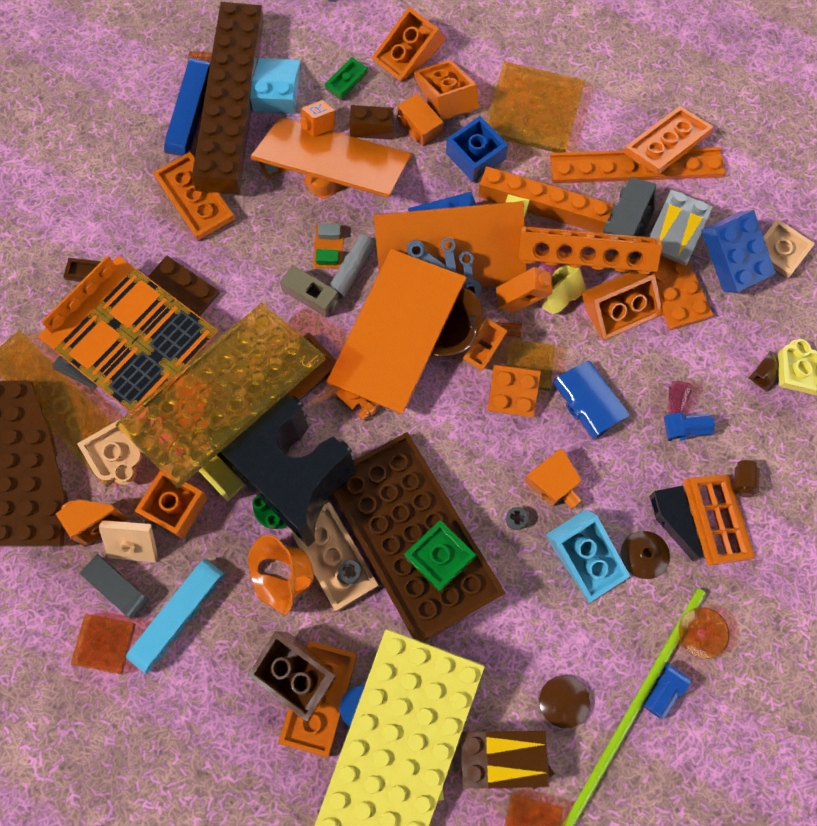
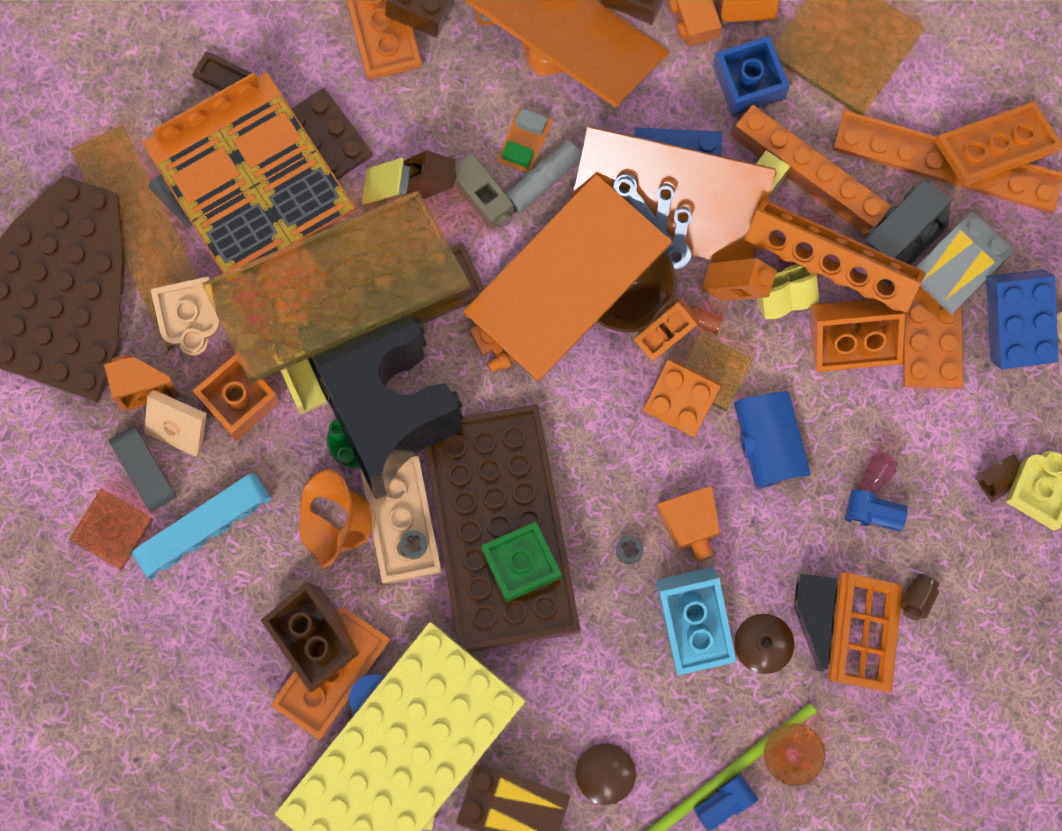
camera: 15 degrees right, 5 degrees up
(234, 305) = (385, 181): none -> light yellow piece
(264, 288) = (430, 173): none -> reddish brown brick

